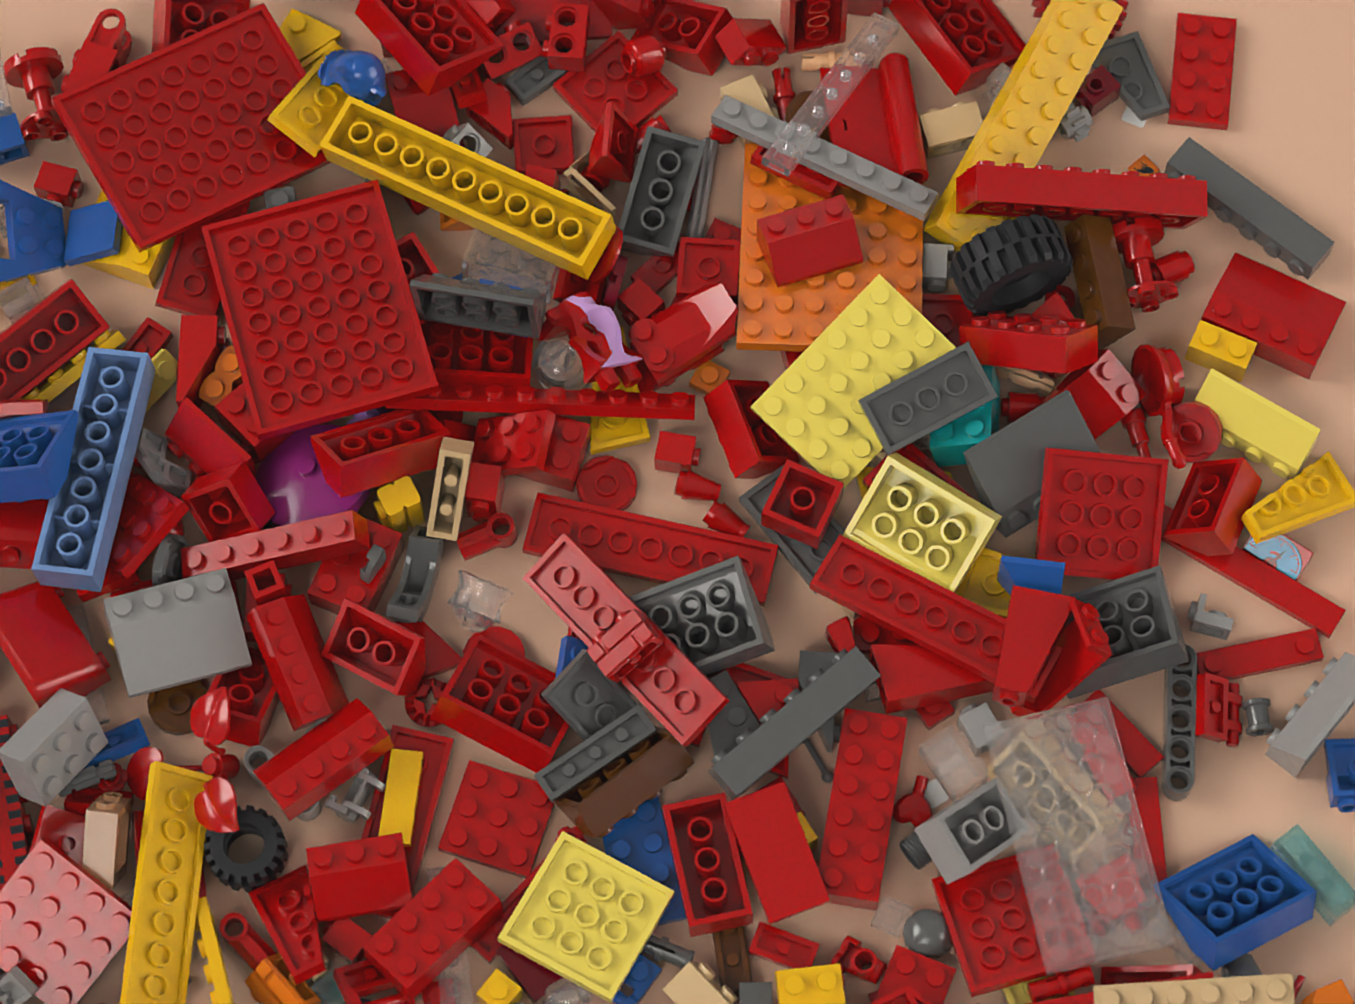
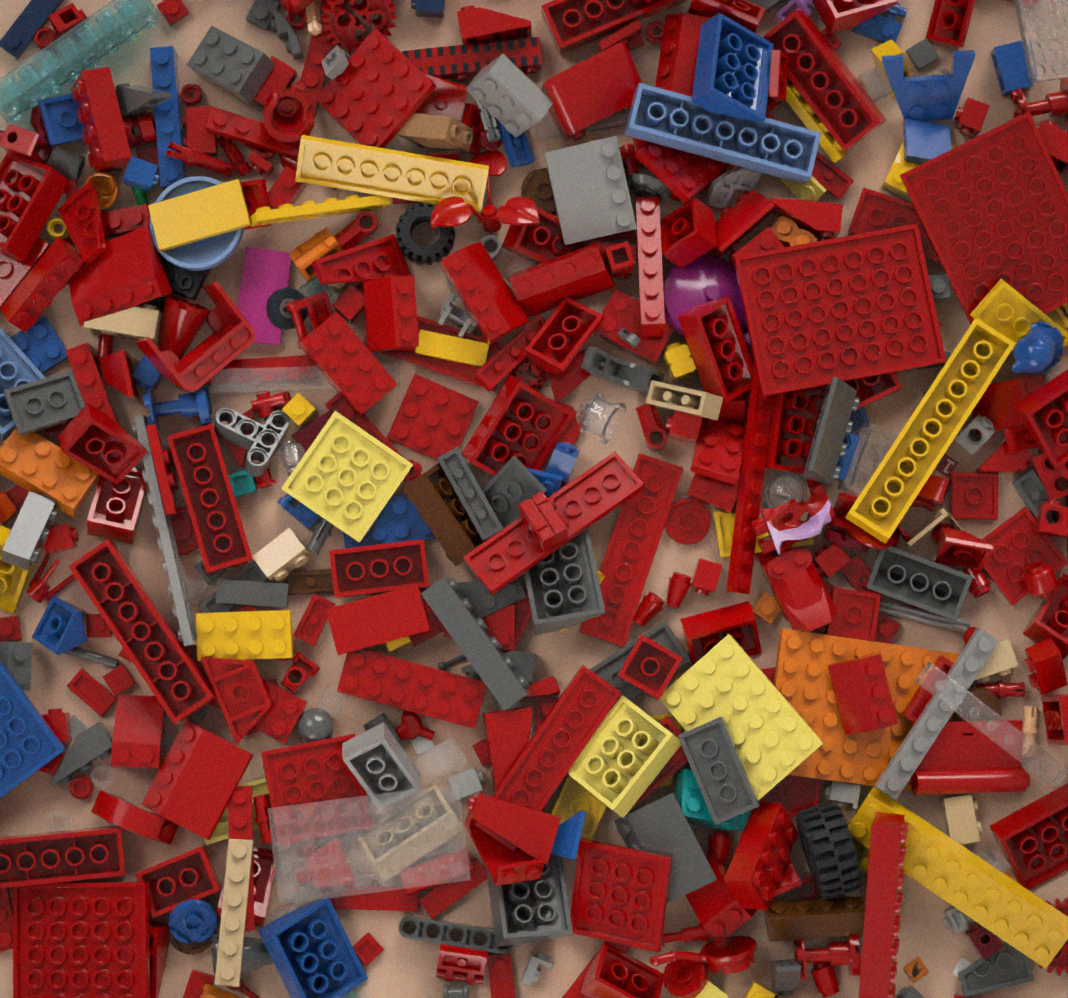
camera: 90 degrees right, 15 degrees up
(403, 720) = (508, 356): none -> red tile
(540, 642) = (563, 460): none -> blue brick
(1173, 311) = (785, 976): none -> dark grey slope
(1214, 836) = (367, 948): none -> red tile

